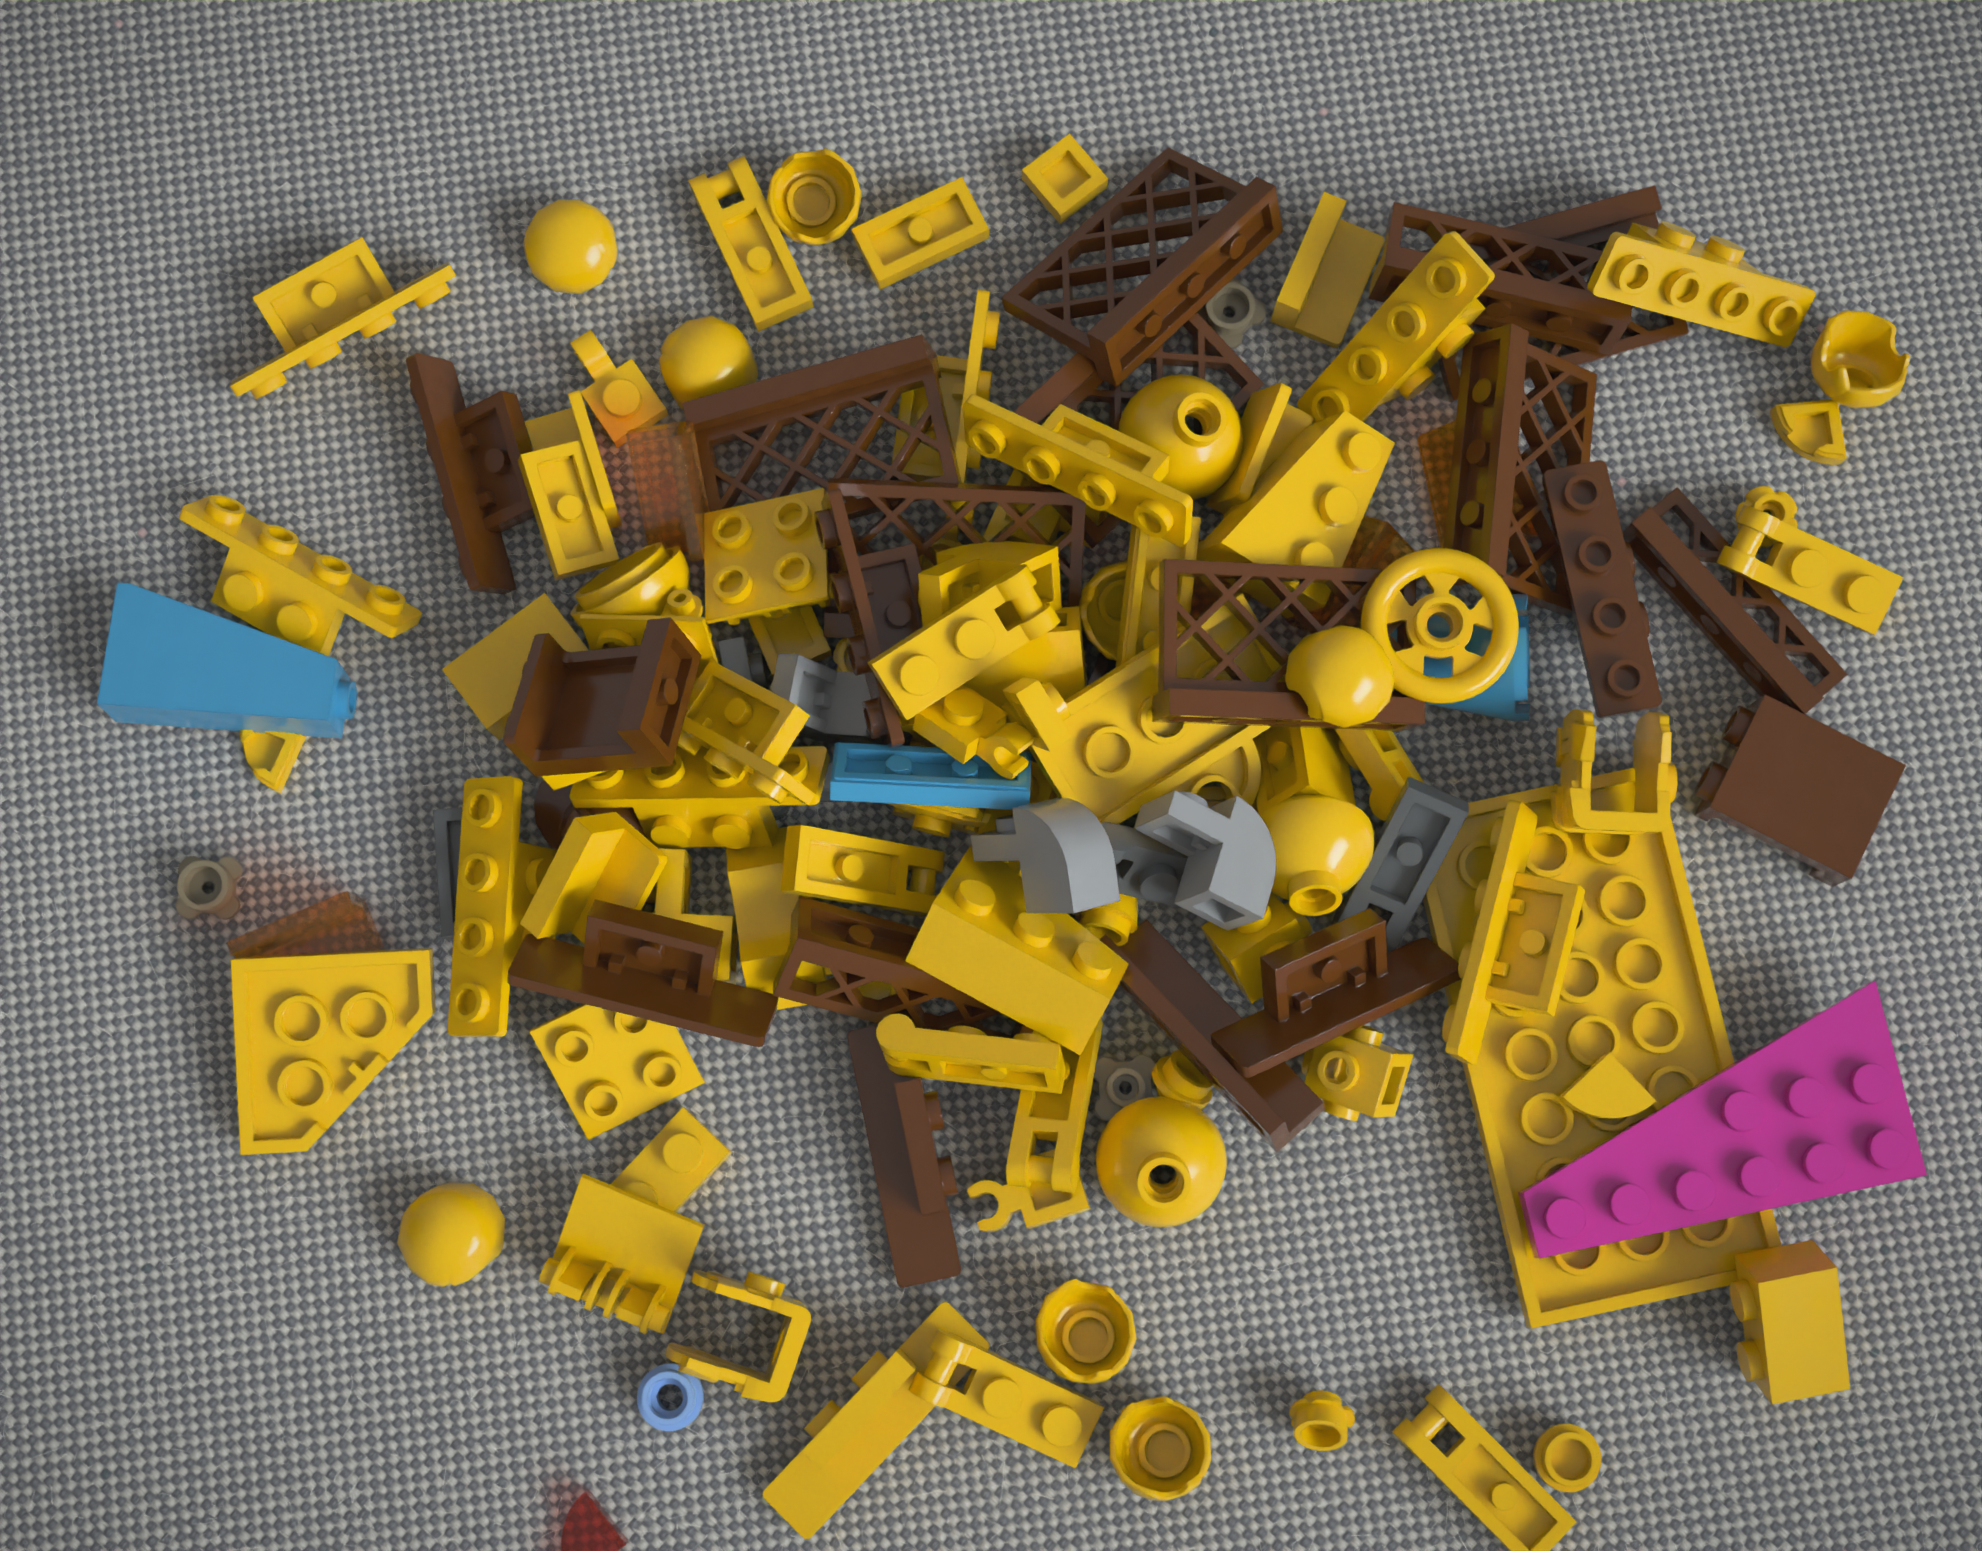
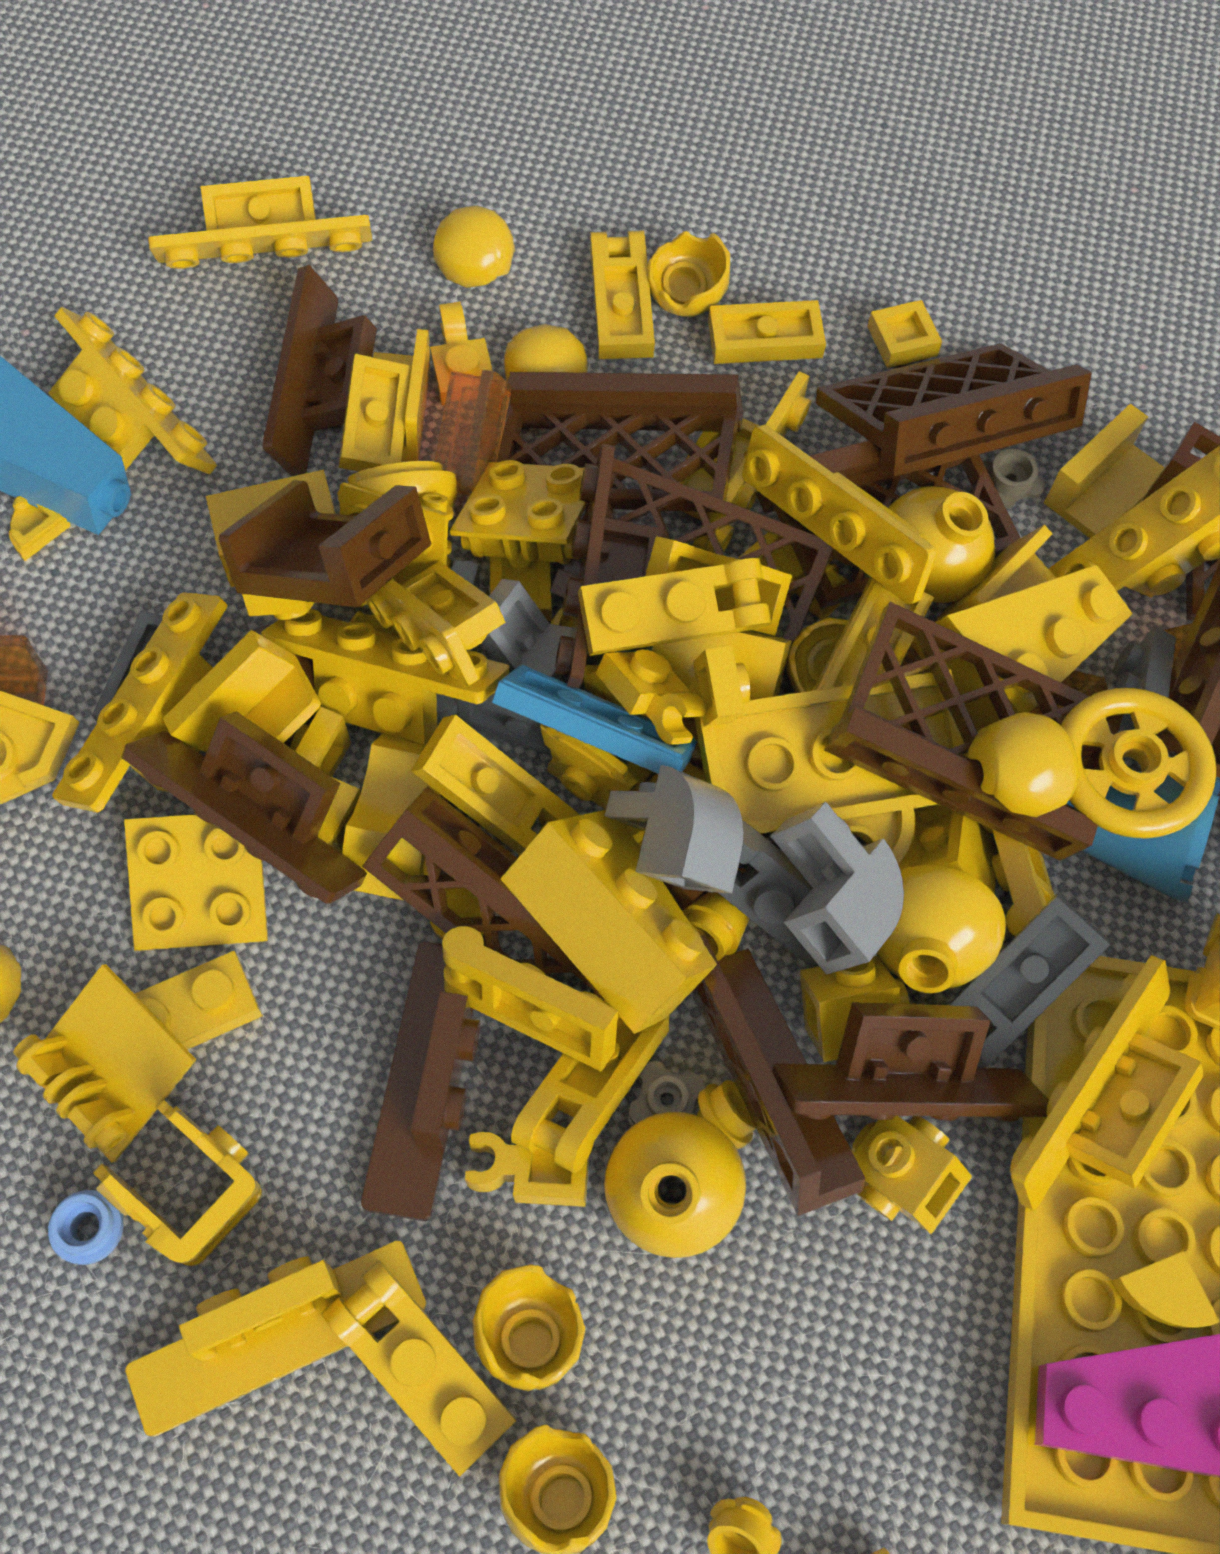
camera: 15 degrees right, 15 degrees down
(1424, 502) = (1146, 666): none -> dark grey plate

